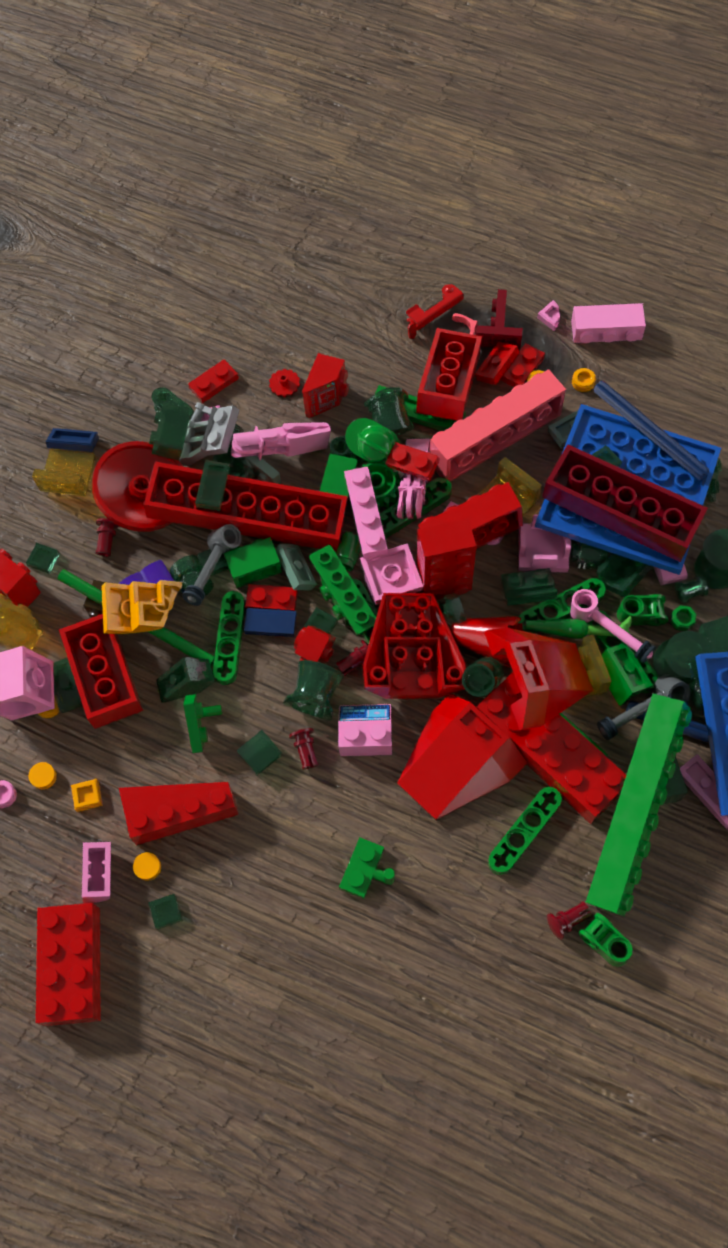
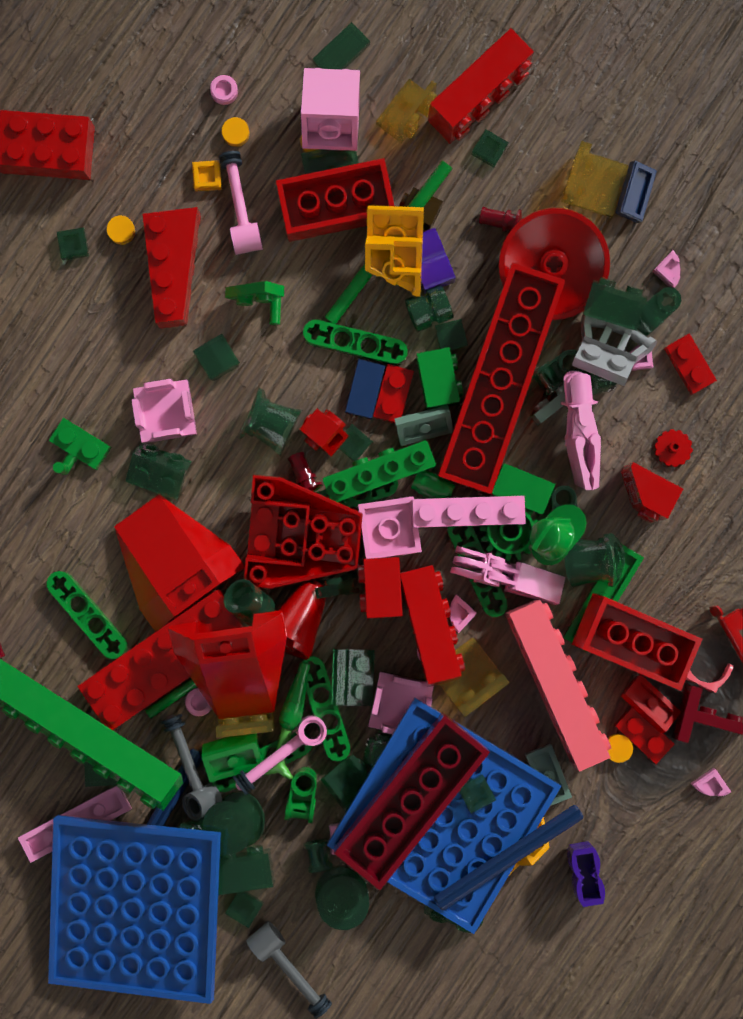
camera: 90 degrees right, 20 degrees up
(96, 872) = (120, 178): bright pink brick -> none
(136, 408) = (669, 270): none -> bright pink tile
(141, 746) = (245, 235): none -> bright pink piece
(185, 678) = (311, 289): clear green slope -> none
(212, 485) = (523, 342): clear green tile -> none
(219, 542) = (465, 339): dark grey piece -> none
(305, 747) = (214, 405): dark red pin -> none
(317, 792) = (163, 410): none -> bright pink panel
(365, 730) = (223, 470): bright pink slope -> none
(375, 787) = (158, 470): none -> clear green bracket
(412, 461) = (519, 575): red plate -> none
(582, 714) = (196, 703): none -> bright pink tile
(583, 380) = (612, 802): light orange tile -> none
(608, 323) = (682, 850): bright pink brick -> none
(647, 383) = (585, 880): none -> dark purple brick
(683, 618) = (286, 837): green tile -> none

